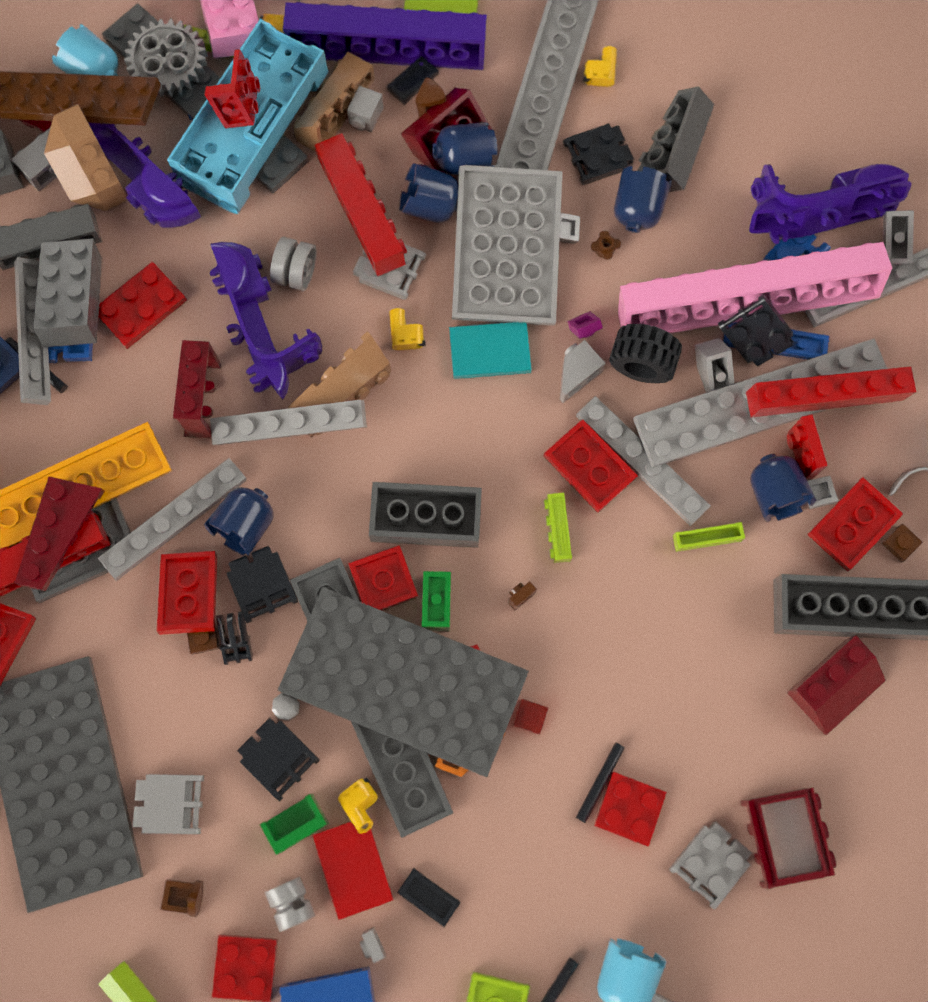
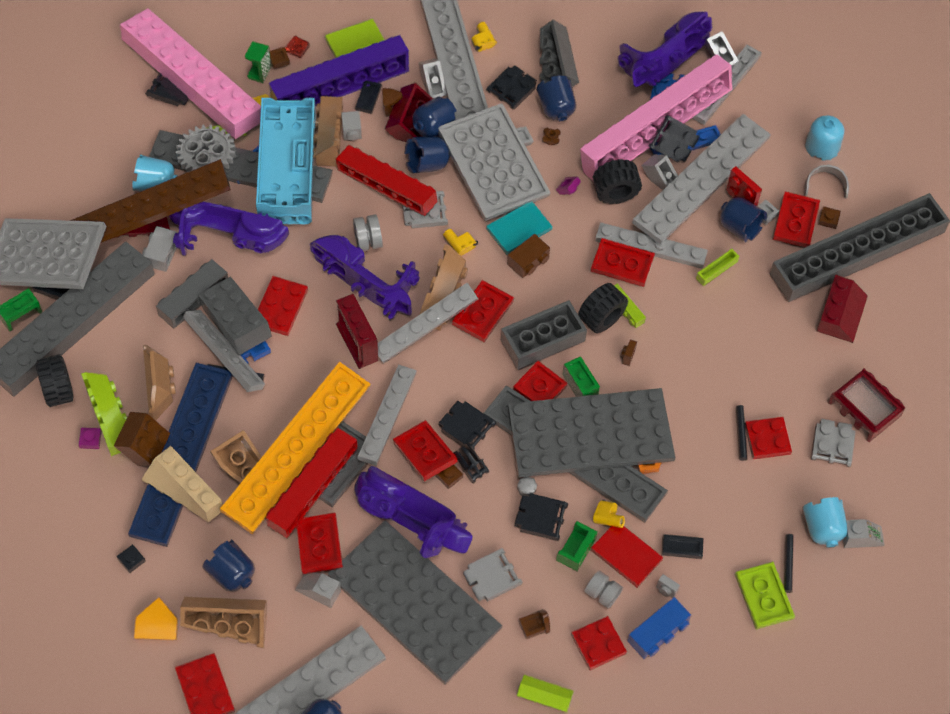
camera: 30 degrees left, 15 degrees down
(58, 520) = (323, 440): dark red wing -> none
(81, 162) = (198, 231): medium nougat wedge -> none
(100, 634) = (394, 500): none -> dark purple piece
(236, 102) = (279, 150): red bracket -> none
(241, 519) = (432, 393): dark blue cylinder -> none
(384, 440) = (485, 313): none -> red plate
(476, 396) = (528, 256): none -> reddish brown brick
(503, 93) = (433, 77): none -> light grey slope
(519, 520) = (603, 308): none -> black tyre
(530, 716) = (678, 418): clear red plate -> none
(579, 368) = (580, 211): light grey slope -> none
(830, 391) = (737, 151): red brick -> none

